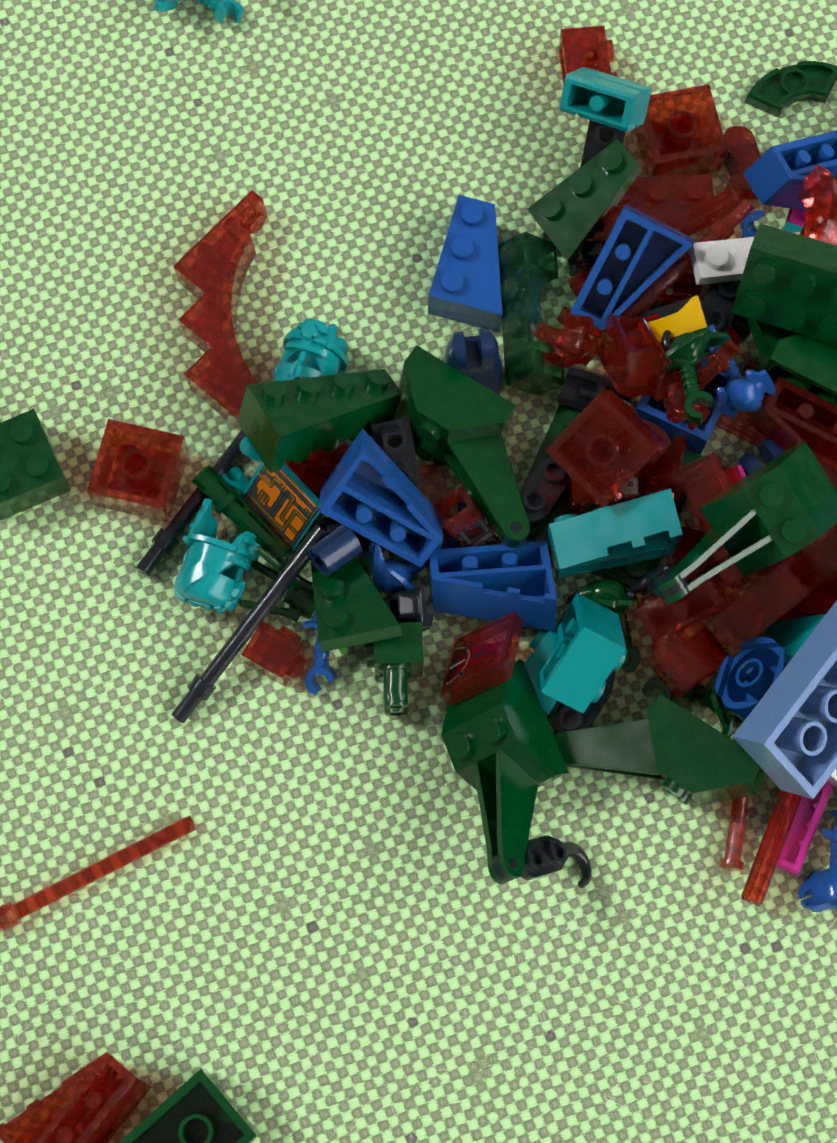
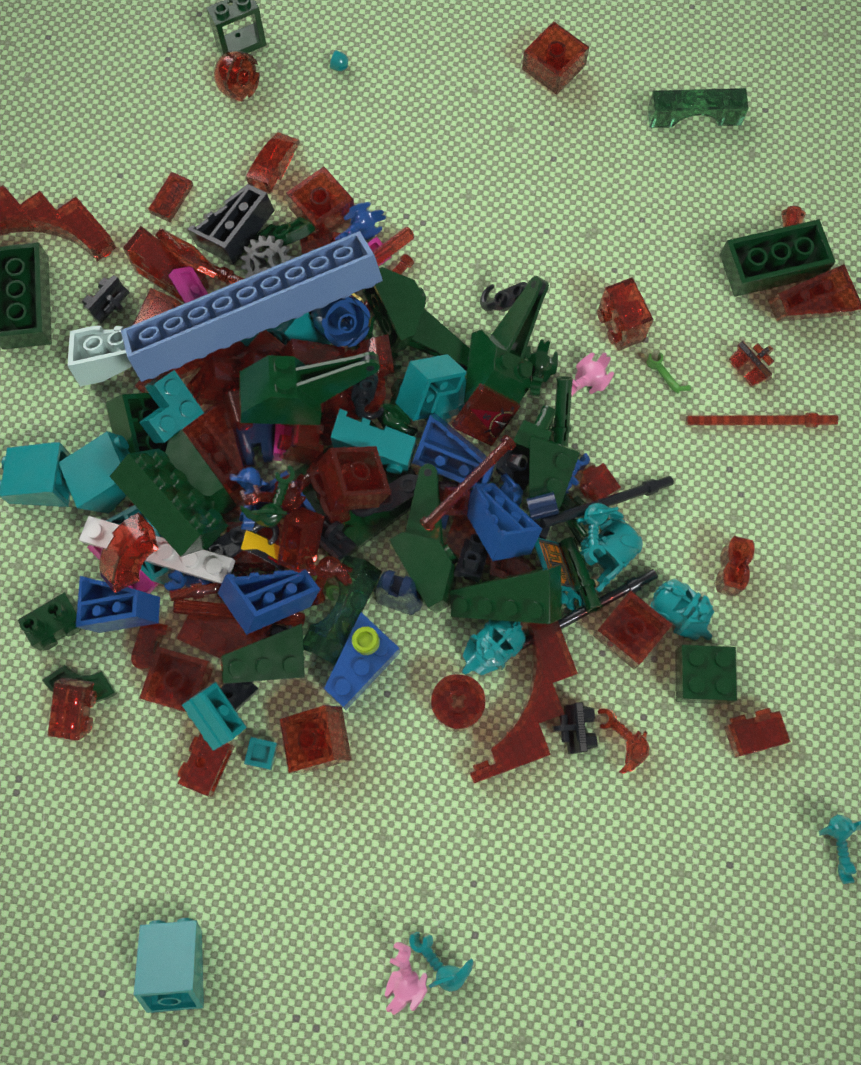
camera: 150 degrees left, 0 degrees up
(34, 631) = (734, 561): none -> clear red brick
(69, 333) = (636, 746): none -> clear red piece
(84, 533) = (684, 609): none -> teal helmet
(127, 967) = (760, 371): none -> clear red hips
(147, 310) = (573, 728): none -> black hips
(250, 877) = (665, 374): none -> bright green piece
(257, 577) = (595, 516): none -> teal piece
(320, 274) = (459, 687): none -> clear red brick
(359, 926) = (624, 314): none -> clear red brick
(362, 818) = (592, 374): none -> bright pink piece
(368, 706) = (563, 407): none -> dark green pin
(449, 794) = (542, 365): none -> dark green piece
(452, 529) = (506, 444): none -> clear red bar
(470, 145) = (315, 739): none -> clear red brick
(474, 276) = (365, 640): none -> lime tile
(529, 112) = (261, 753): none -> teal plate
(782, 46) = (71, 709): none -> clear red brick

